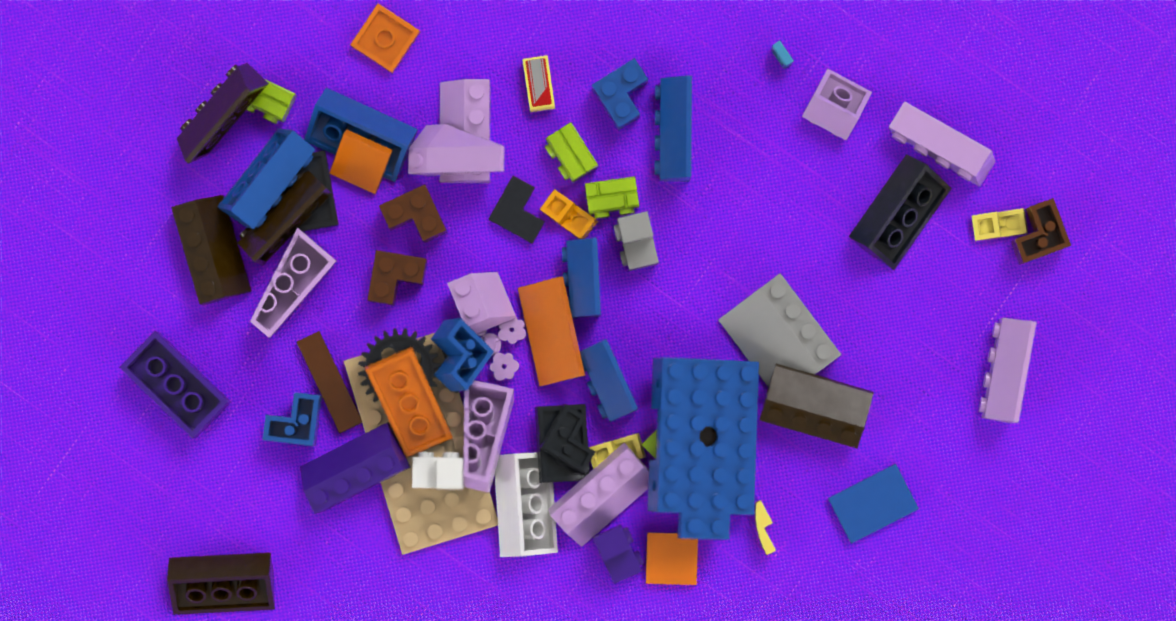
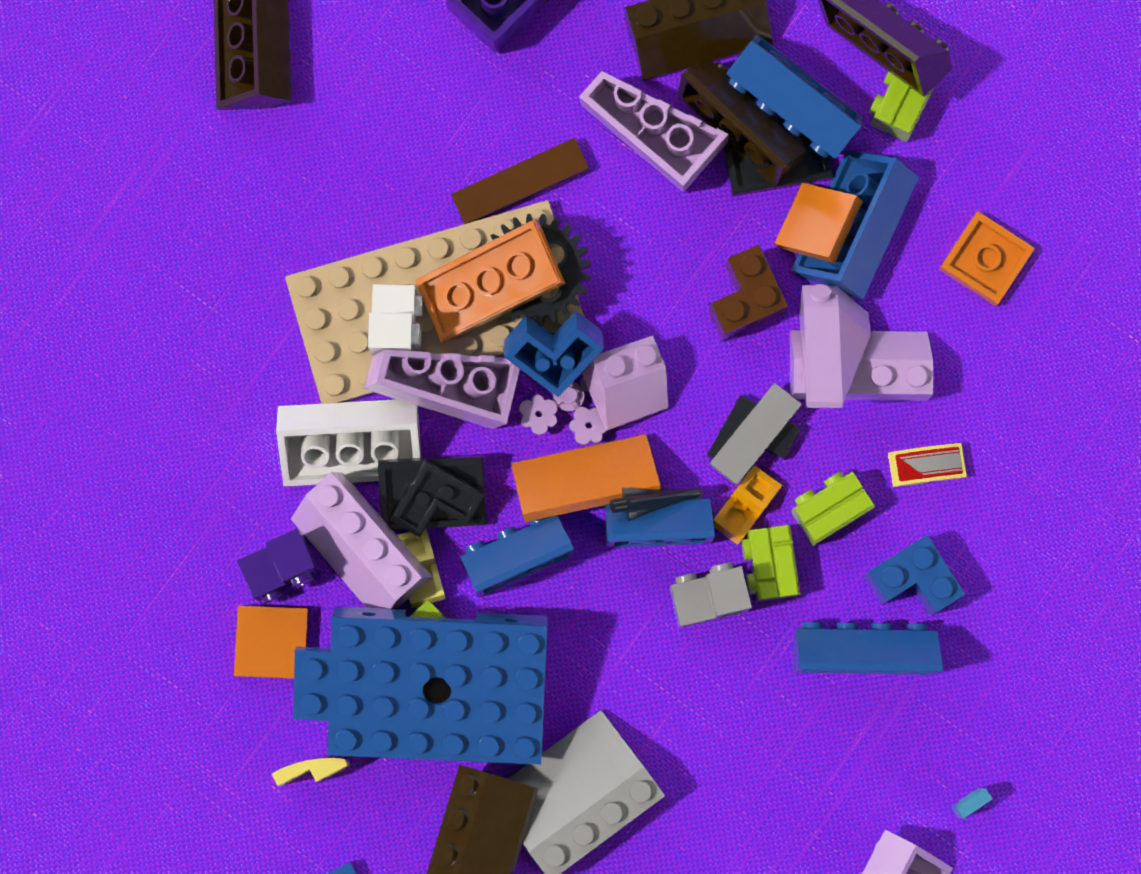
camera: 85 degrees right, 5 degrees down
(301, 427) = (459, 140): blue brick -> none
(353, 468) = (401, 209): dark purple slope -> none
(389, 270) = (669, 260): reddish brown brick -> none
(518, 208) = (755, 434): none -> light grey tile
(569, 289) = (641, 501): none -> black piece

